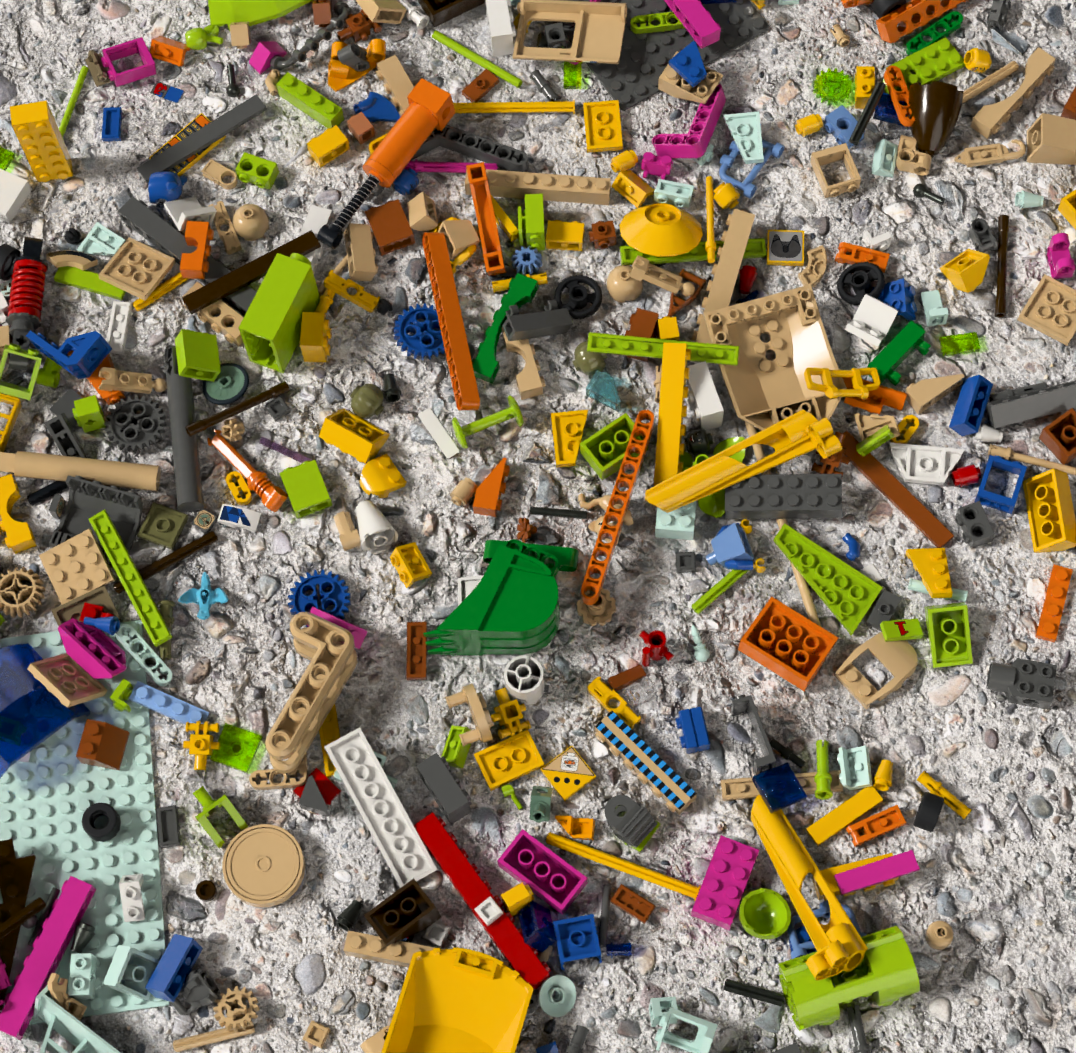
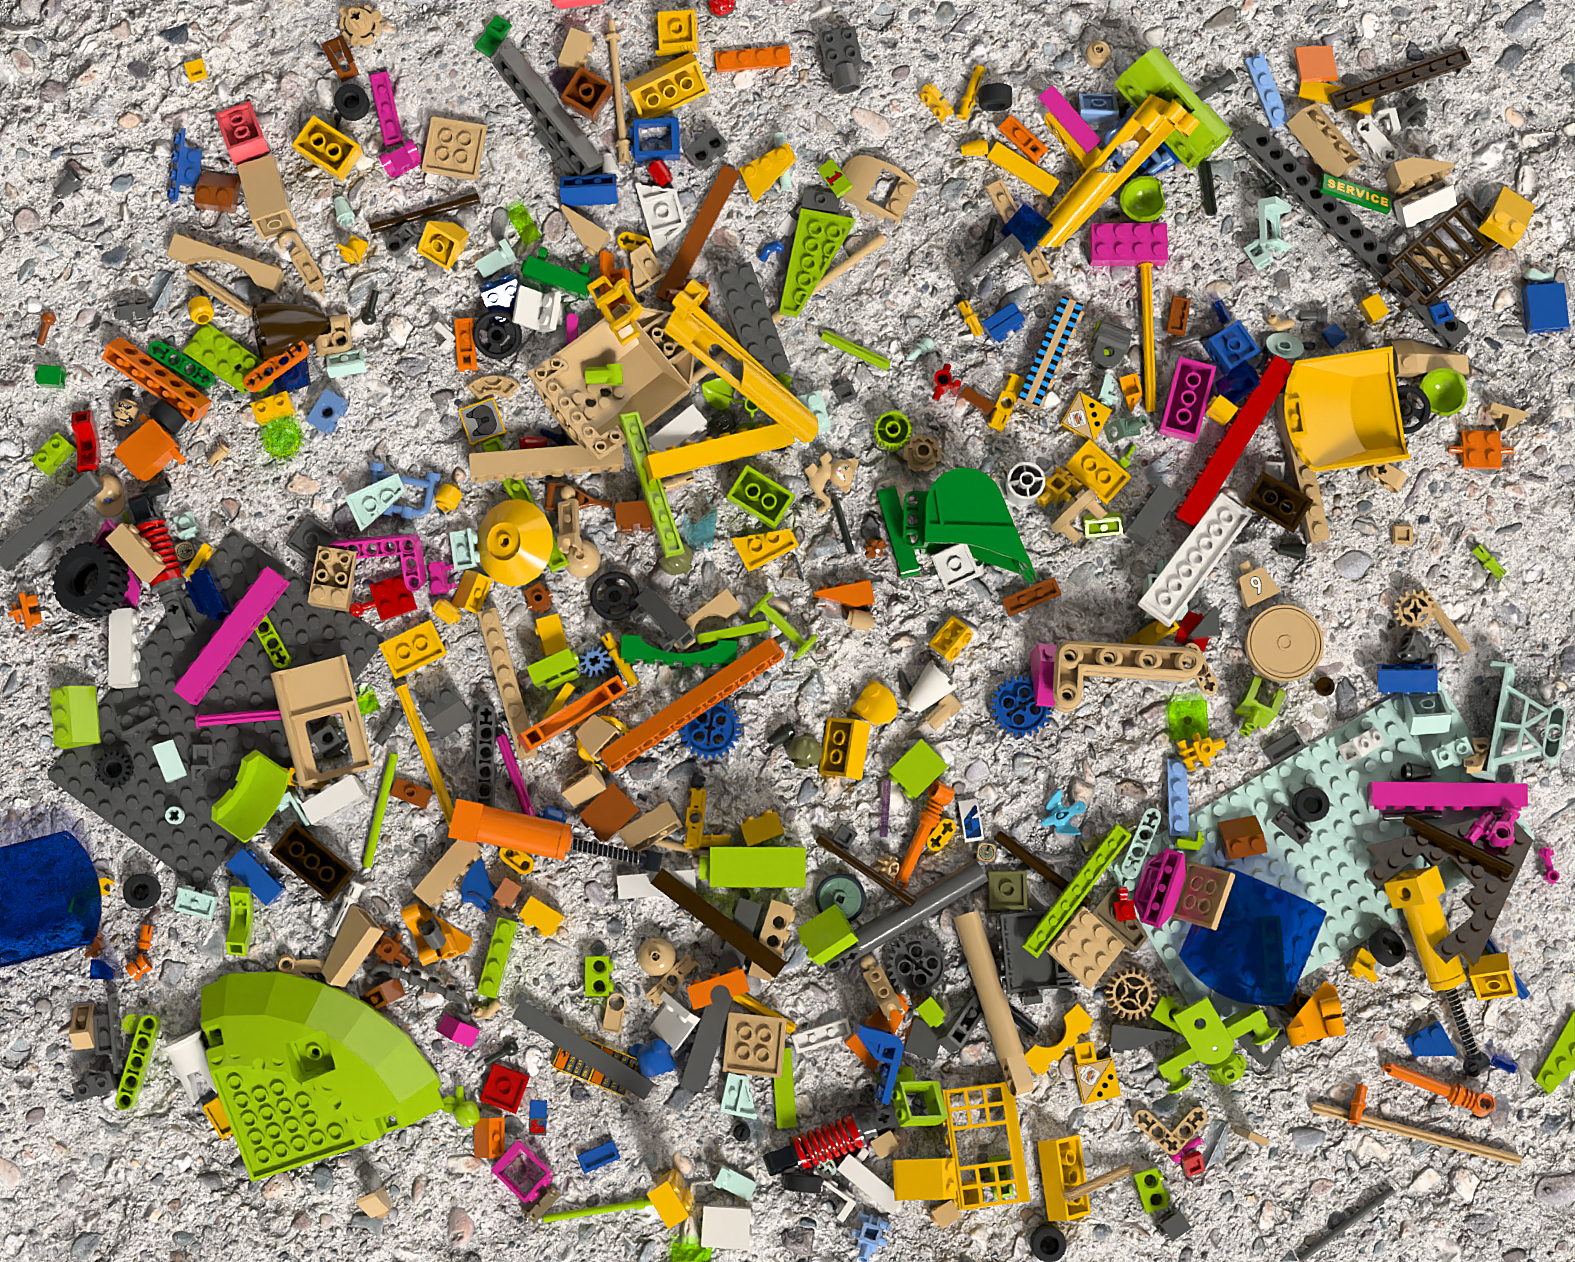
camera: 120 degrees left, 15 degrees up
(37, 214) = (735, 1183): none -> light aqua bracket
(71, 258) = (768, 1119): tan tile -> none
(97, 794) = (1292, 826): none -> dark grey hinge
(107, 624) = (1133, 885): blue cone -> none
(203, 75) = (504, 1088): none -> red tile
(240, 34) = (445, 1067): tan brick -> none
(332, 862) = (1254, 585): none -> tan torso
(438, 433) = (807, 672): white sticker -> none
(488, 911) = (1245, 427): white tile -> none
(501, 380) = (733, 633): none -> lime beam
(537, 132) = (445, 711): none -> dark grey slope
(583, 1002) = (1278, 325): none -> tan arm
(588, 801) = (1105, 388): none -> light aqua bracket
(617, 515) = (835, 457): orange beam -> none
(626, 575) = (892, 441): none -> lime brick
(655, 120) = (390, 599): none -> red plate
(667, 328) = (626, 490): yellow brick -> none
(689, 64) = (322, 580): blue wing -> none
(710, 245) = (515, 486): yellow bar -> none
(711, 702) = (970, 318): none -> yellow axle
(733, 549) = (818, 351): medium blue torso -> none
(737, 83) = (309, 536): none -> dark grey tile
(783, 358) = (610, 374): none -> lime piece
(787, 643) = (890, 269): orange slope -> none
(808, 125) = (336, 447): yellow brick -> none
(823, 777) = (1002, 195): lime pin -> none
(831, 155) = (370, 390): tan window -> none
(842, 349) = (572, 328): none -> dark pink bar
(855, 767) = (979, 173): light aqua bracket -> none
(867, 113) = (309, 390): pearl dark grey axle -> none
(874, 441) = (661, 262): lime slope -> none
(883, 911) = (1098, 108): none -> light blue slope
(949, 634) = (821, 137): lime slope -> none
(953, 754) = (930, 96): none -> yellow hinge
(985, 195) = (353, 250): none -> yellow bracket

